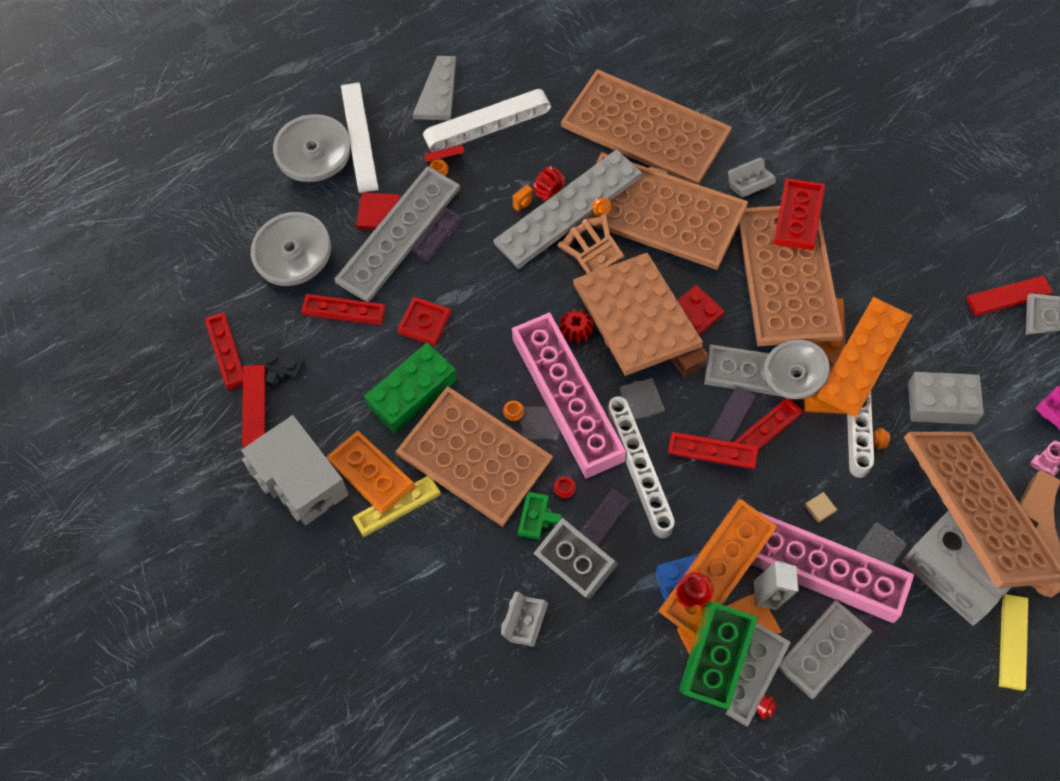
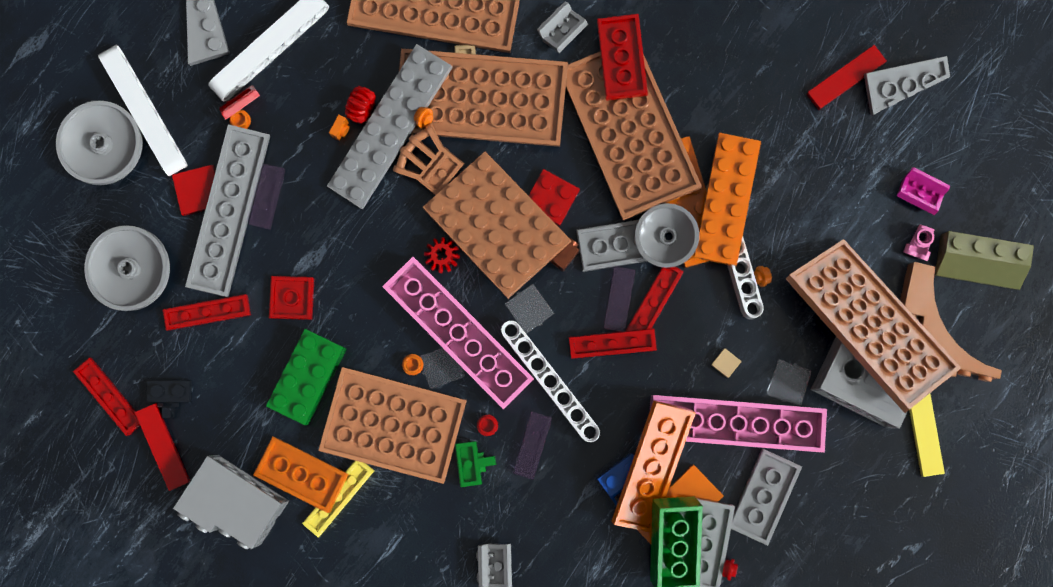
camera: 20 degrees left, 20 degrees up
(575, 558) = (522, 496): light grey brick -> none
(694, 590) = (639, 499): red hair -> none
(775, 585) = (708, 461): light grey brick -> none
(945, 398) = (812, 213): light grey brick -> none

